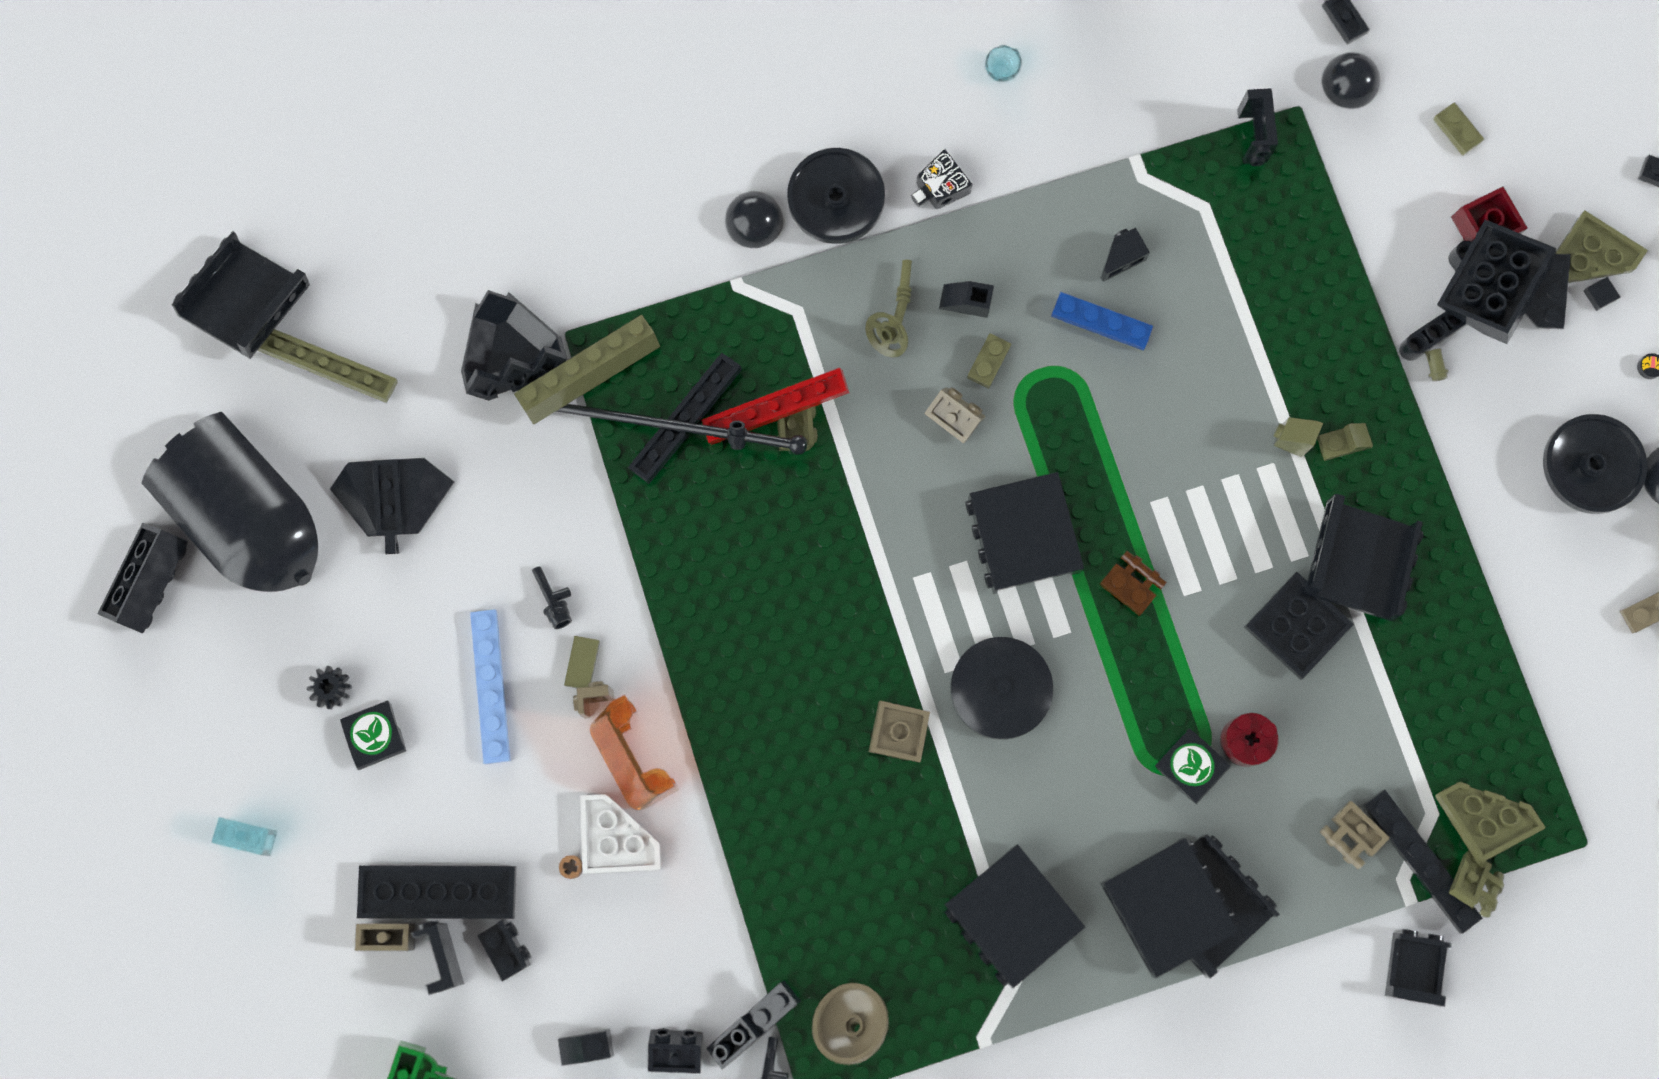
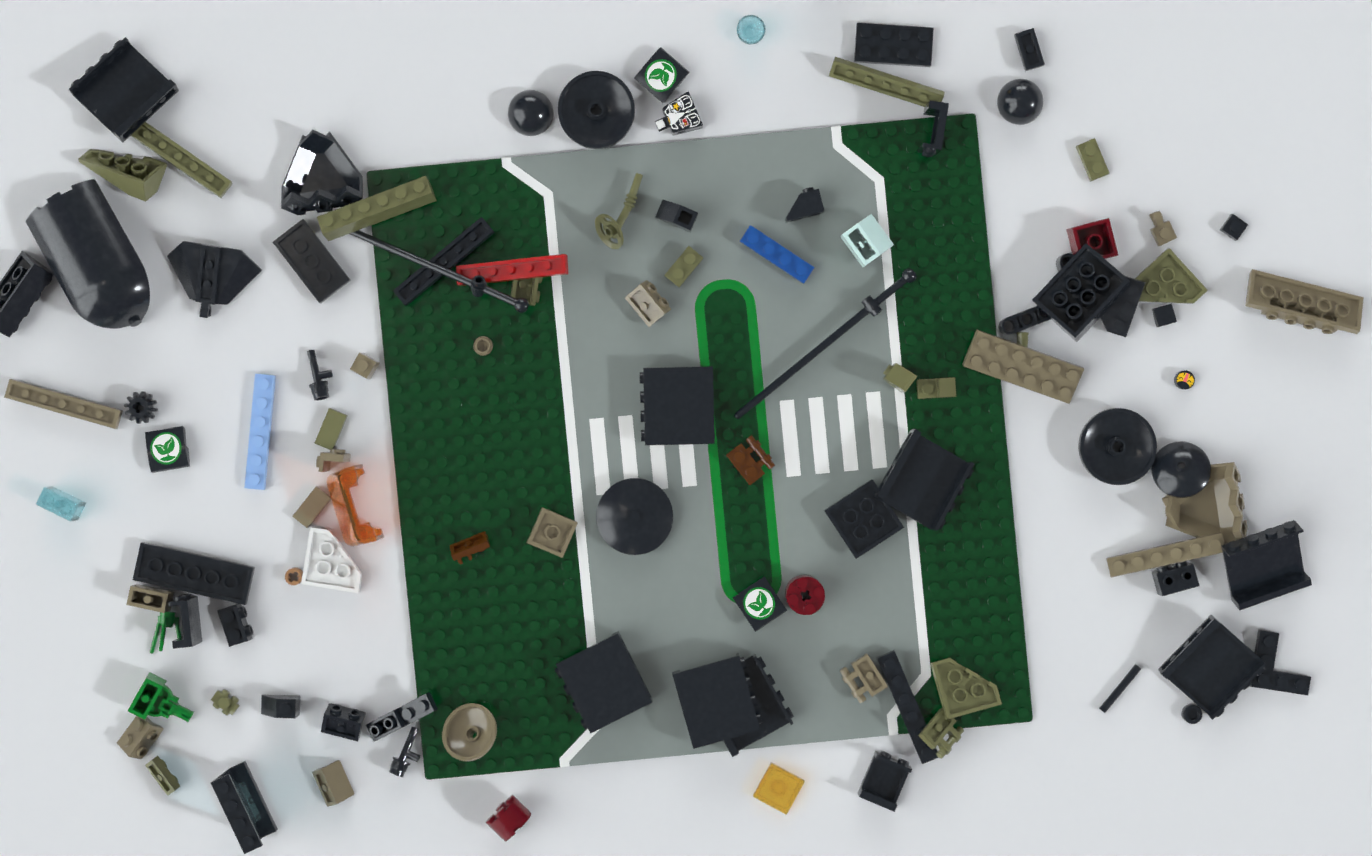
camera: 15 degrees right, 10 degrees up
(226, 705) = (63, 404): none -> dark tan plate
(271, 399) = (132, 175): none -> olive wedge
(411, 963) = (165, 621): none -> green plant
(508, 1059) = (222, 701): none -> olive piece
(516, 455) = (311, 261): none -> black plate
(576, 770) = (312, 507): none -> dark tan tile
(610, 570) = (364, 365): none -> dark tan brick
(757, 512) = (483, 345): none -> dark tan plate
(799, 770) = (469, 546): none -> reddish brown plate
(906, 140) = (661, 75): none -> slope
(1178, 91) = (884, 82): none -> olive plate
(1179, 47) = (893, 44): none -> black plate
(1209, 279) = (866, 240): none -> light aqua slope
(1236, 358) = (871, 307): none -> black bar
(1279, 1011) = (778, 788): none -> clear yellow tile
(1447, 391) = (1023, 366): none -> dark tan plate
(1568, 194) = (1162, 231): none -> dark tan plate

